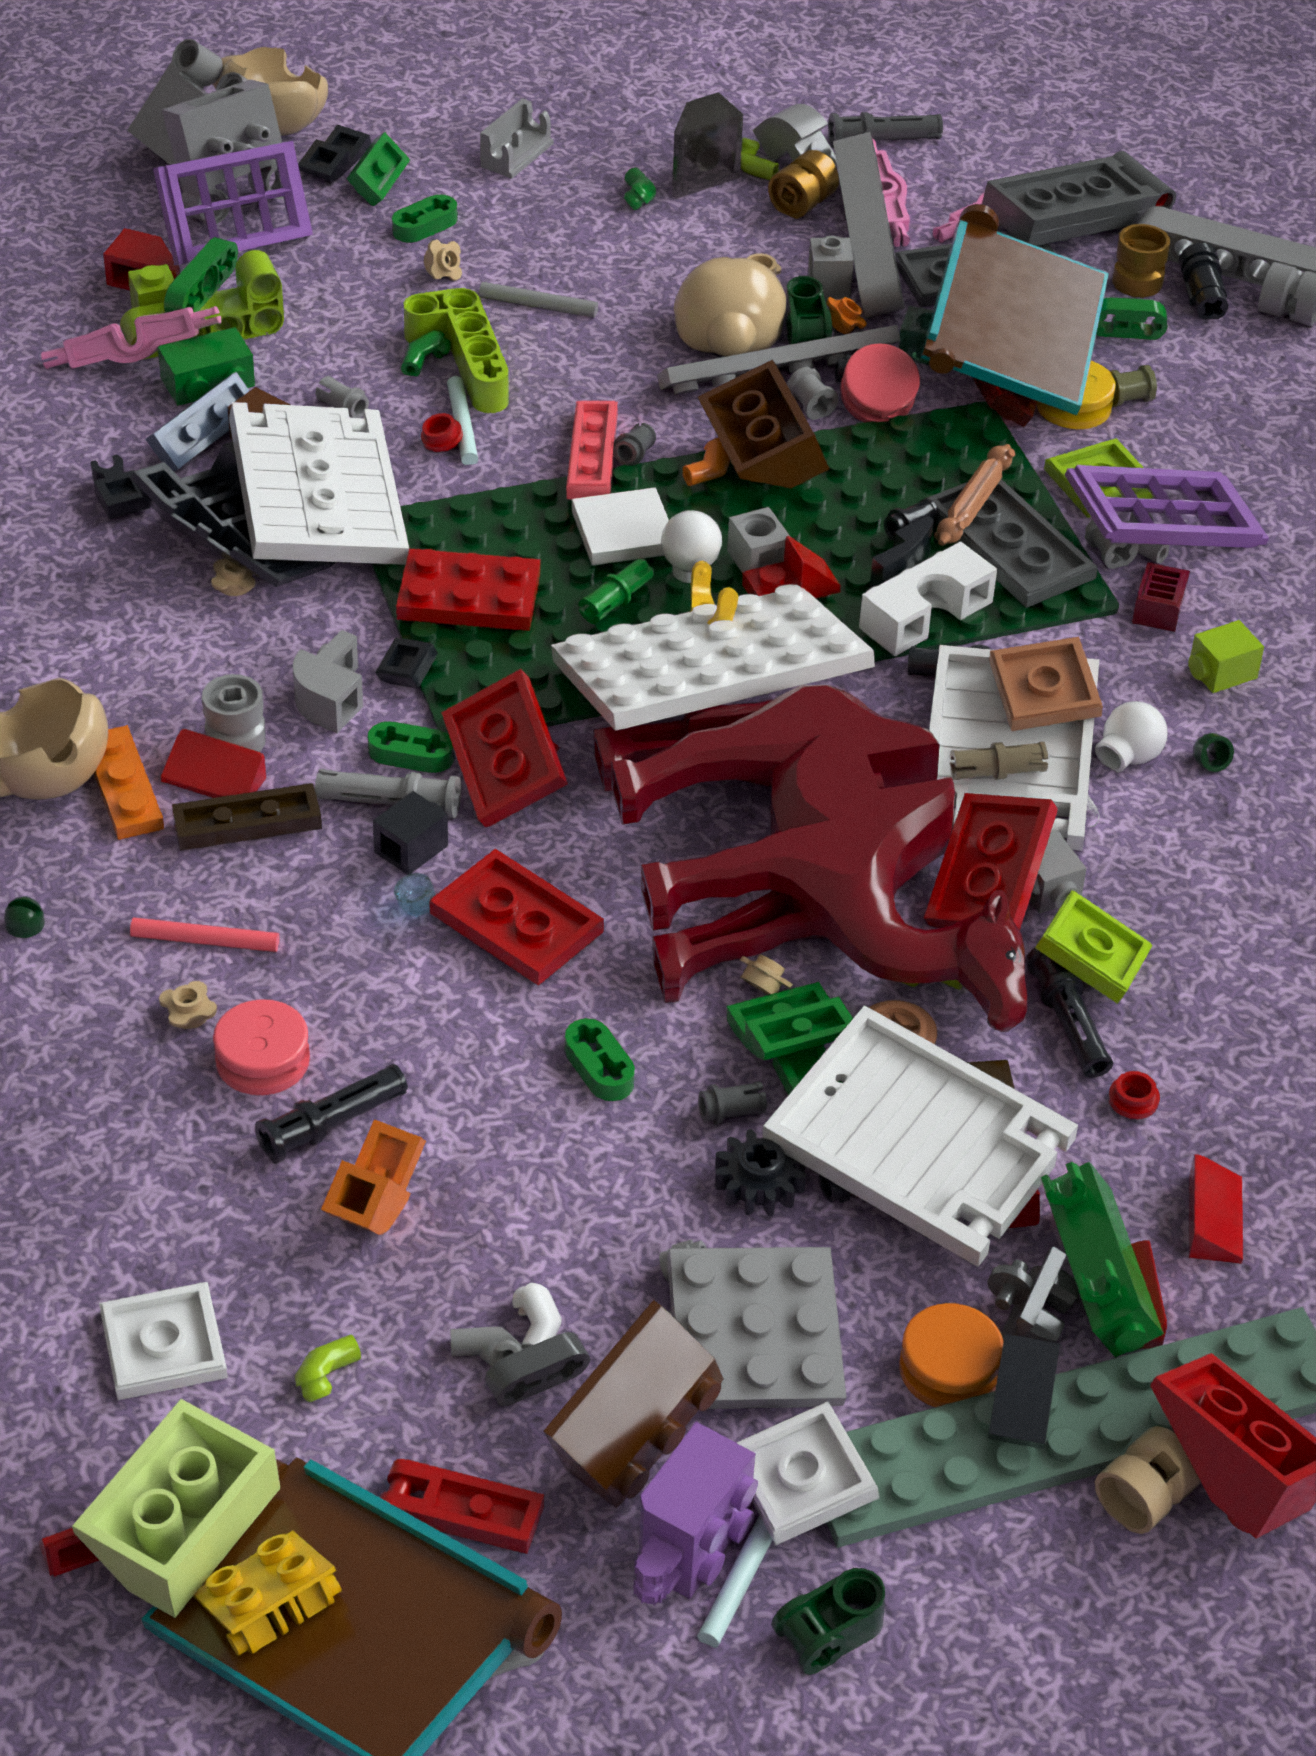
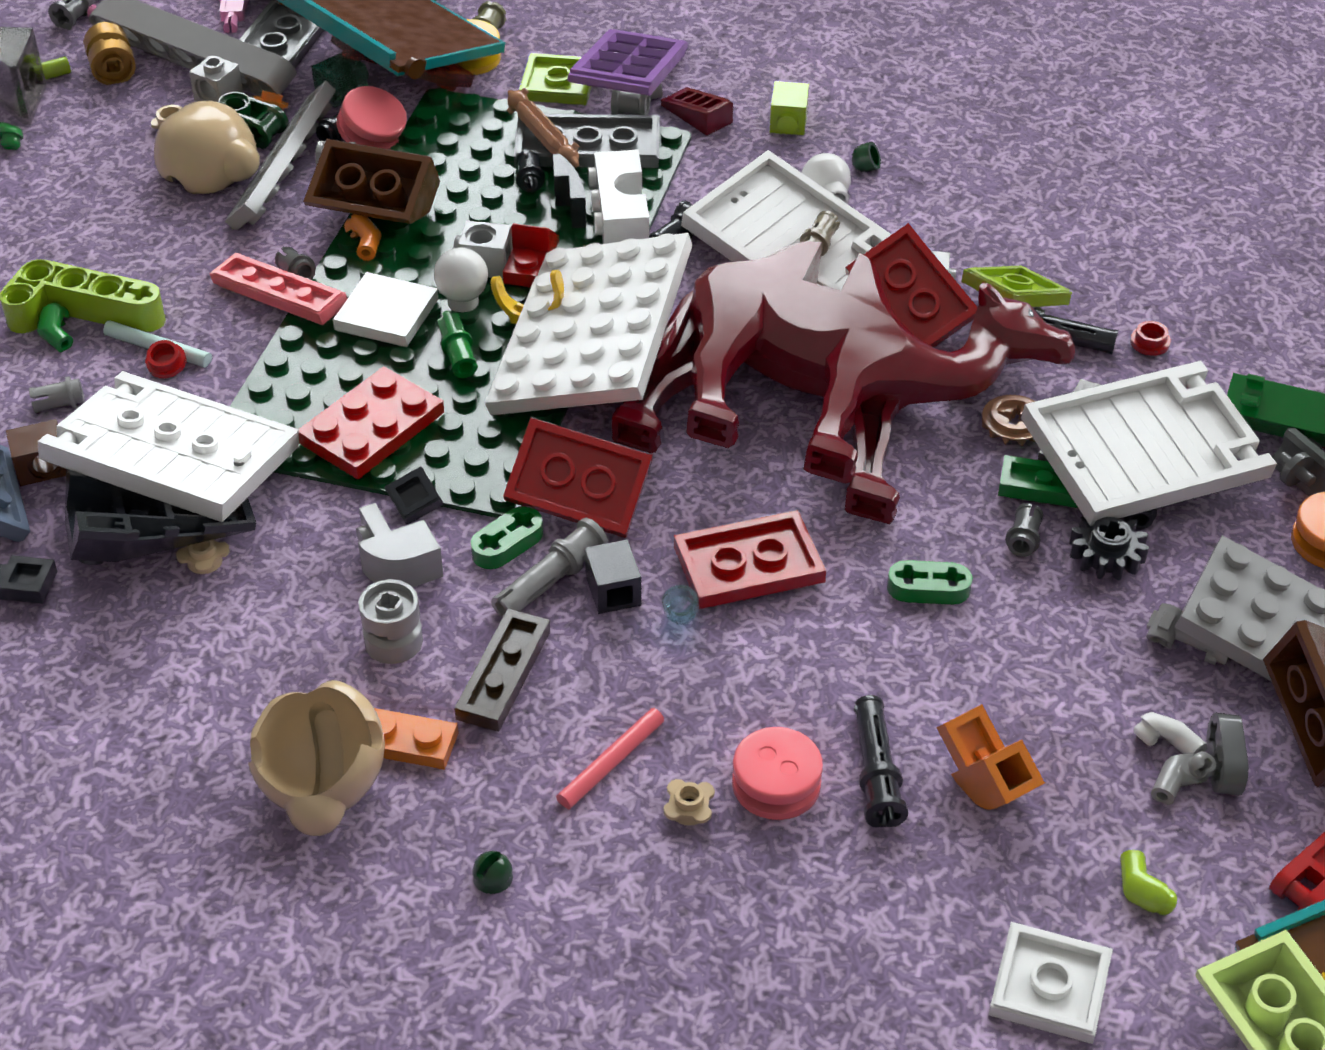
camera: 55 degrees left, 0 degrees up
(213, 766) = (424, 666): red slope -> none
(538, 299) = (64, 240): light grey bar -> none
(764, 974) = (916, 454): tan plate -> none
(788, 1021) = (978, 464): green slope -> none
(793, 133) = (55, 25): light grey brick -> none
(1045, 683) = (770, 182): nougat plate -> none
(1215, 1212) = (1272, 356): red slope -> none

